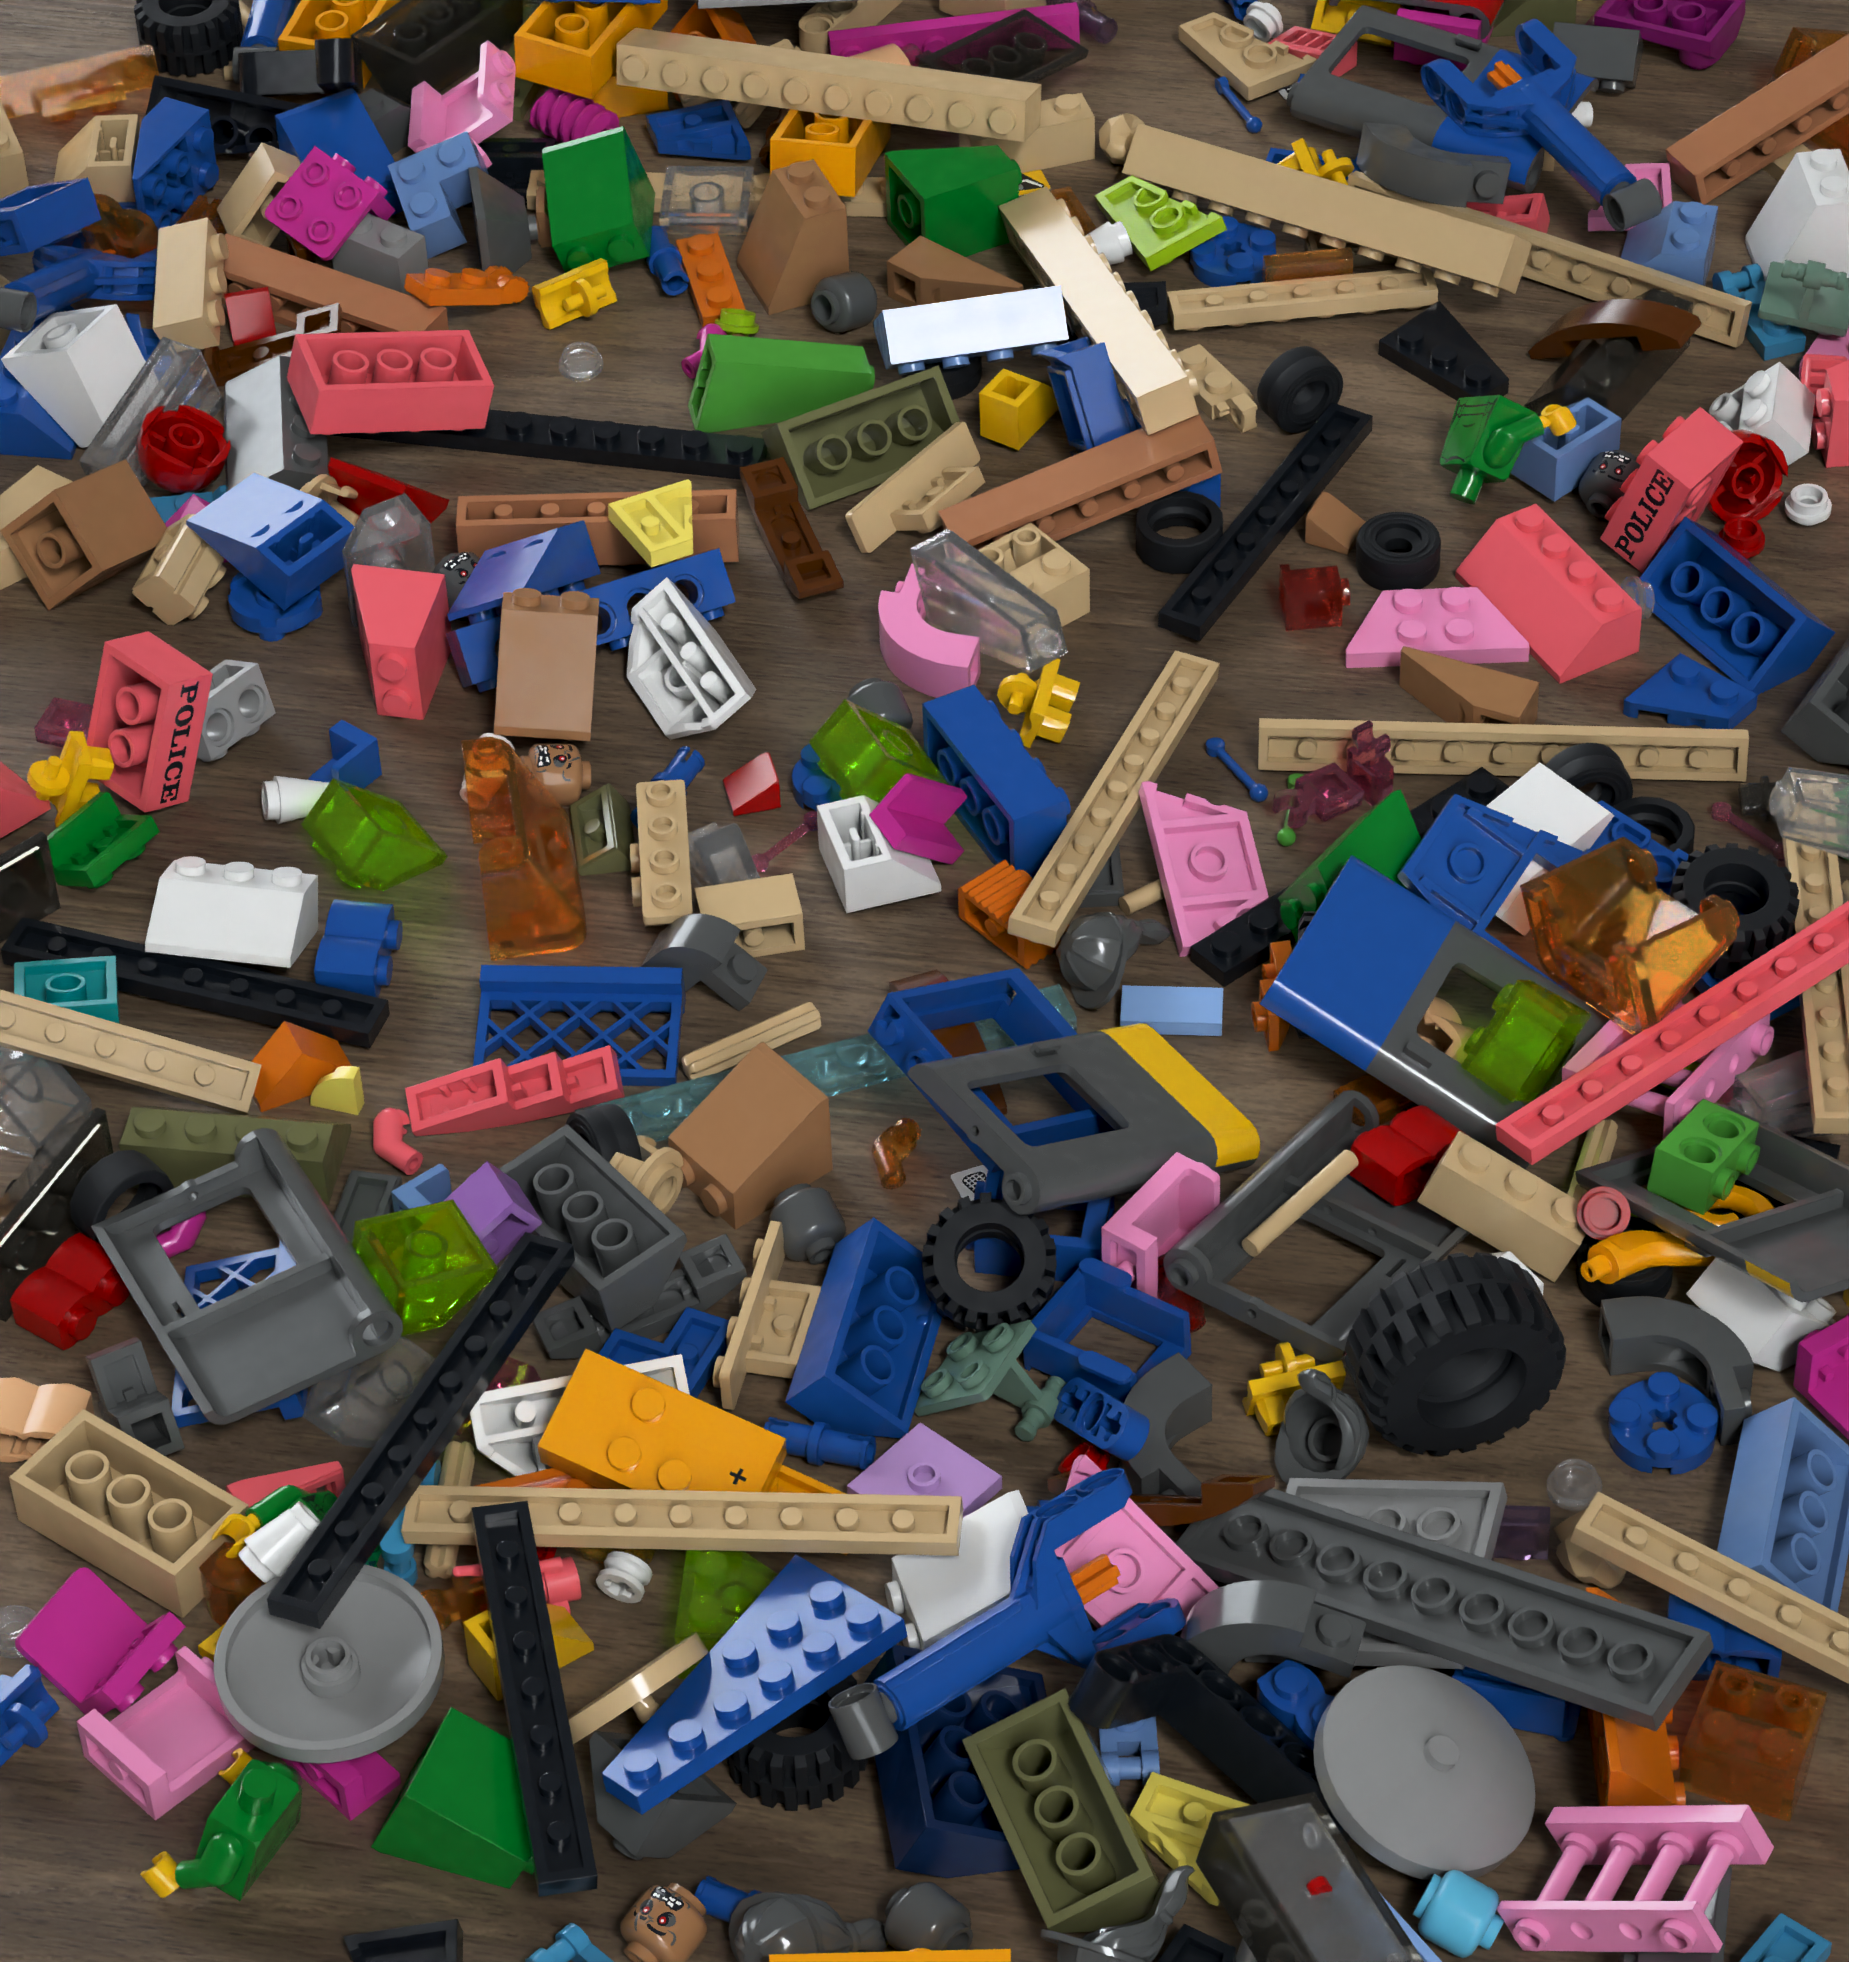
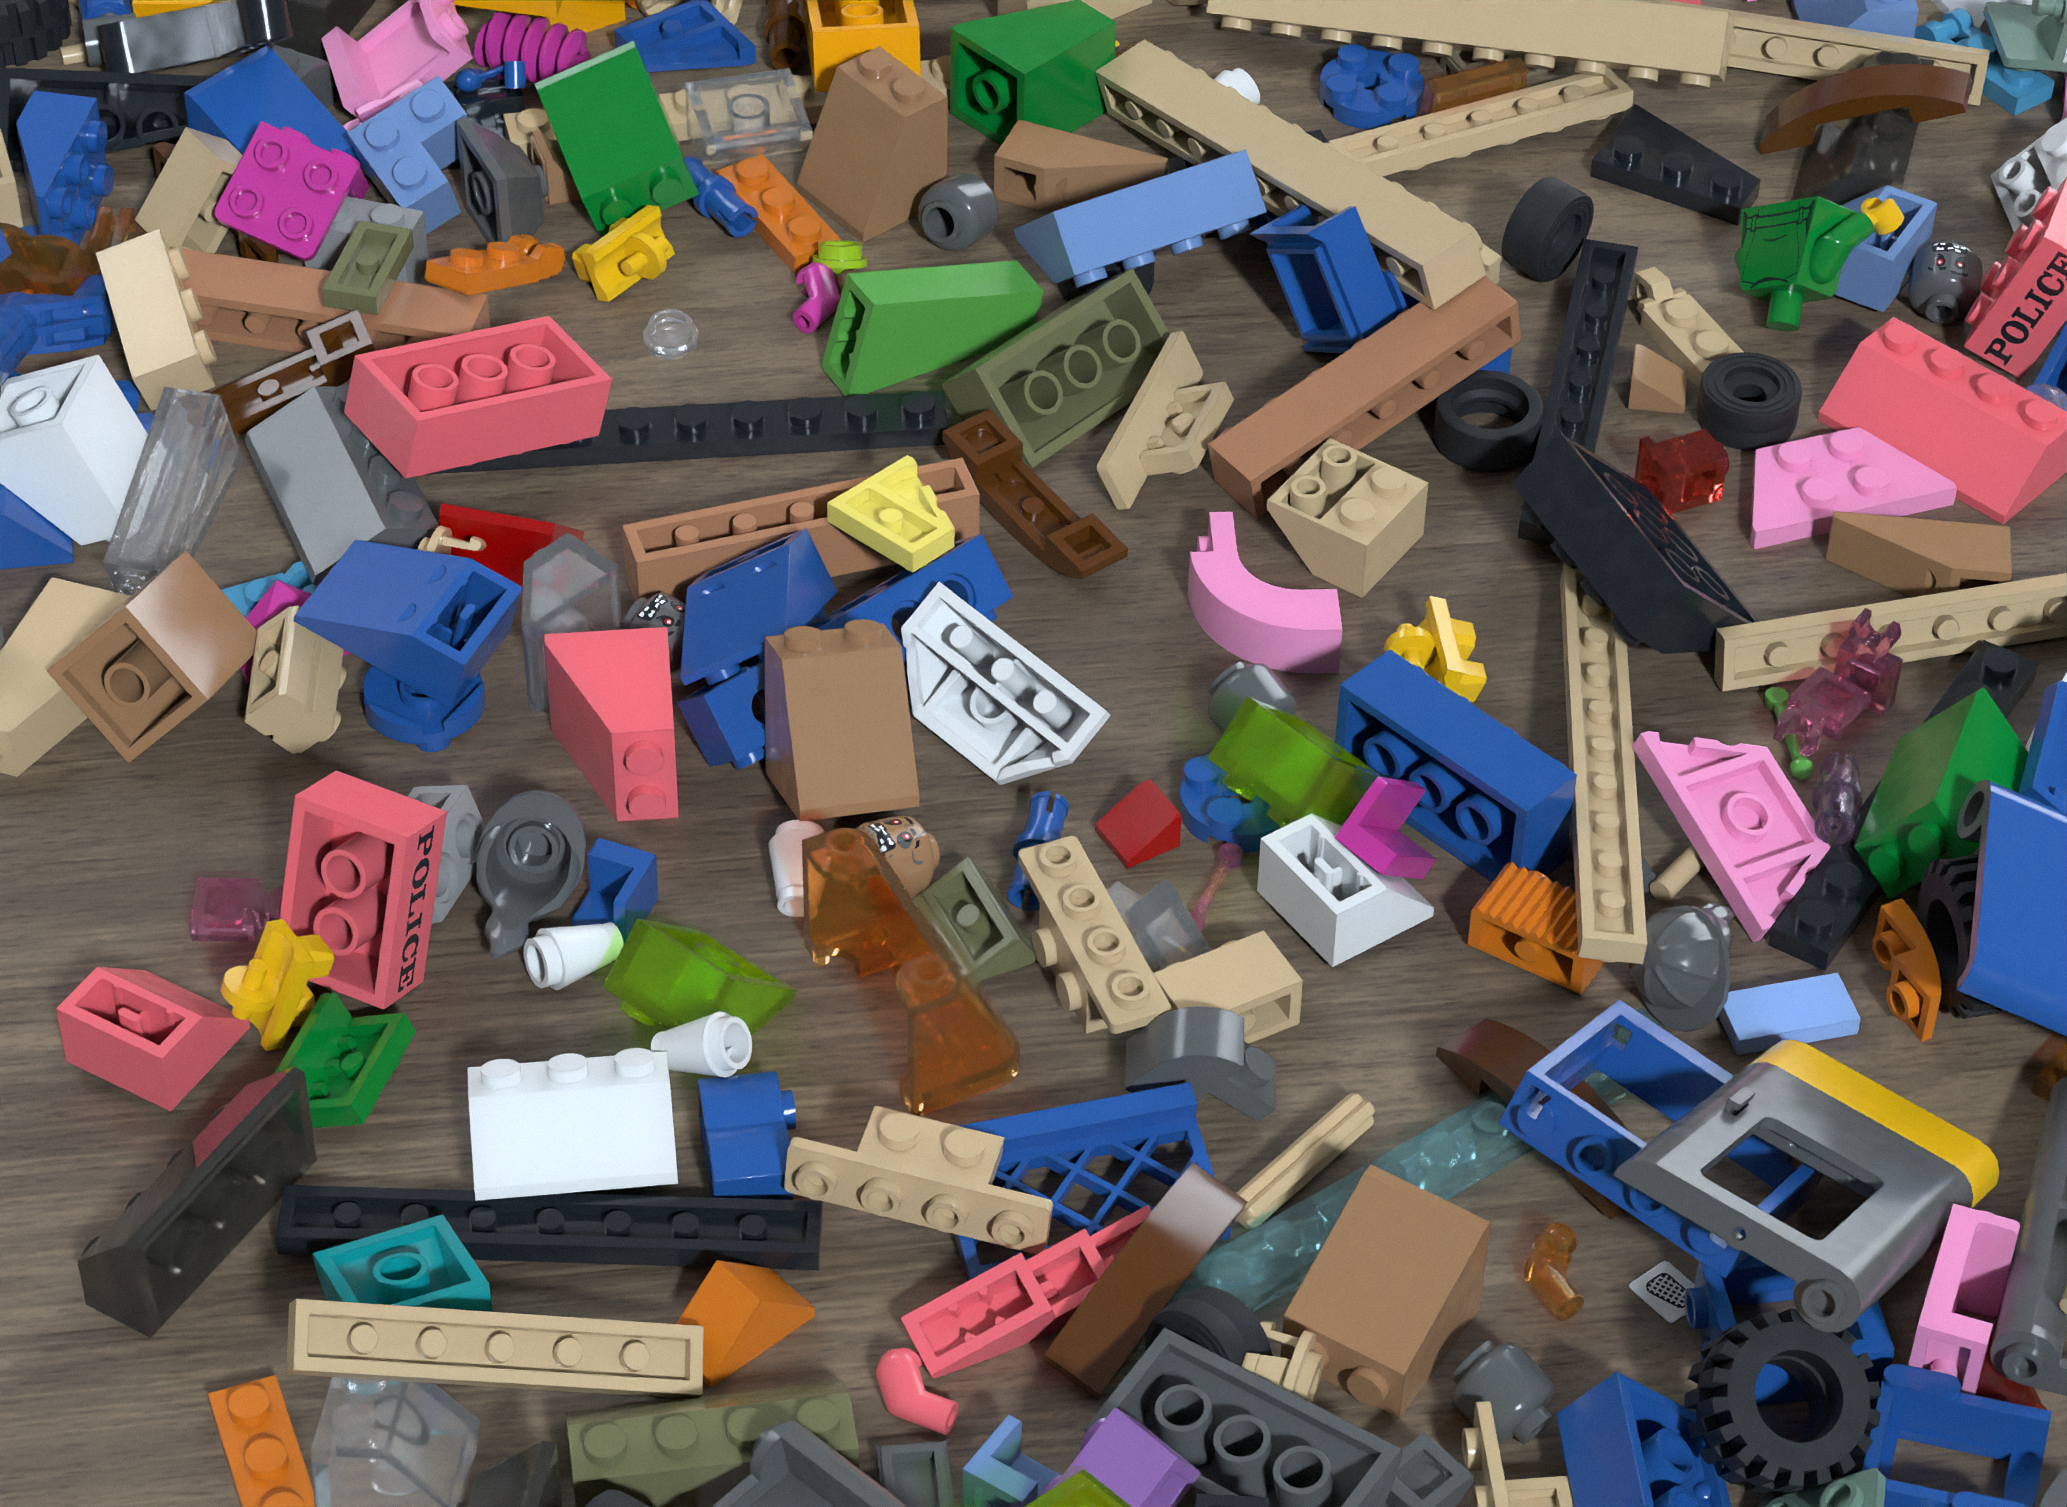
camera: 20 degrees left, 0 degrees up
(181, 449) = (233, 525): red cylinder -> none
(249, 315) = (236, 344): red slope -> none
(285, 730) = (528, 864): none -> dark grey piece
(340, 1091) = (810, 1339): light yellow tile -> none
(348, 876) = (707, 1045): none -> white cone
(360, 272) = (368, 267): none -> olive plate
(456, 993) = (922, 1176): none -> tan bracket
(515, 138) = (514, 76): none -> blue piece
(600, 1079) = (1143, 1280): none -> reddish brown slope
(980, 599) = (1318, 540): clear slope -> none
(1014, 408) = (1227, 306): yellow slope -> none
(1155, 223) = (1285, 68): lime wing -> none
(1216, 748) = (1660, 674): blue hinge -> none
(1224, 647) = (1628, 551): none -> black slope
(1291, 861) = (1837, 798): none -> clear purple pin
(1379, 480) = (1680, 324): none -> tan hinge

